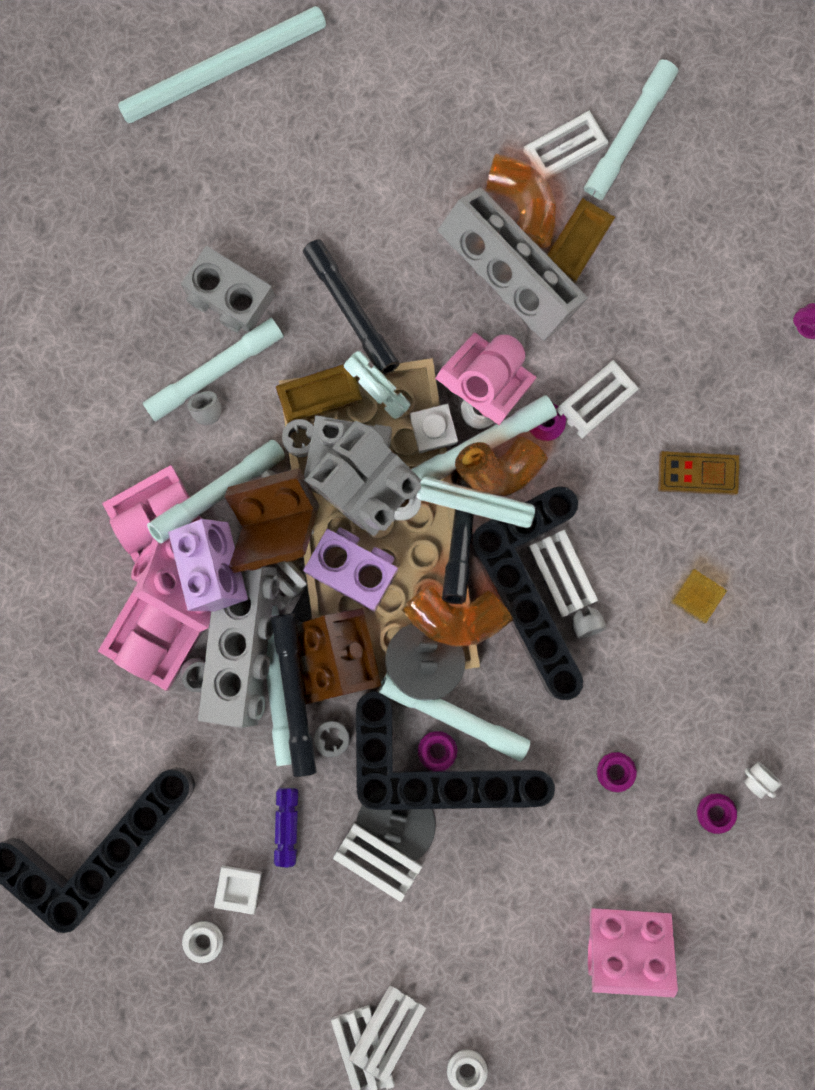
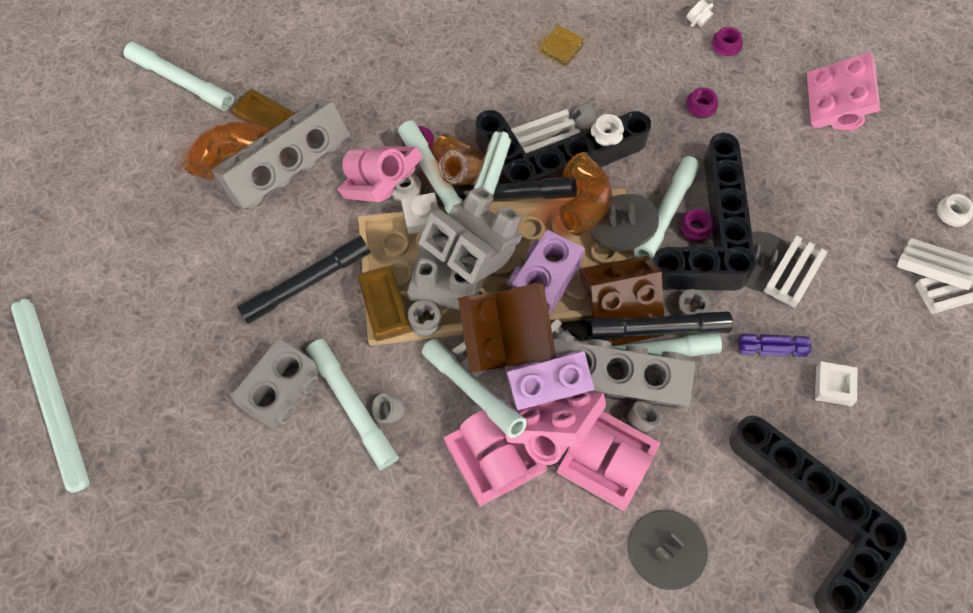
camera: 90 degrees left, 20 degrees down
(64, 694) = (668, 550): none -> dark grey piece
(191, 948) = (892, 408): white plate -> none
(377, 385) = (379, 251): light aqua axle -> none
(534, 649) = (607, 123): none -> white plate
(575, 418) = (396, 105): white tile -> none
(594, 131) = (183, 145): white tile -> none
(698, 473) = (464, 44): pearl gold tile -> none

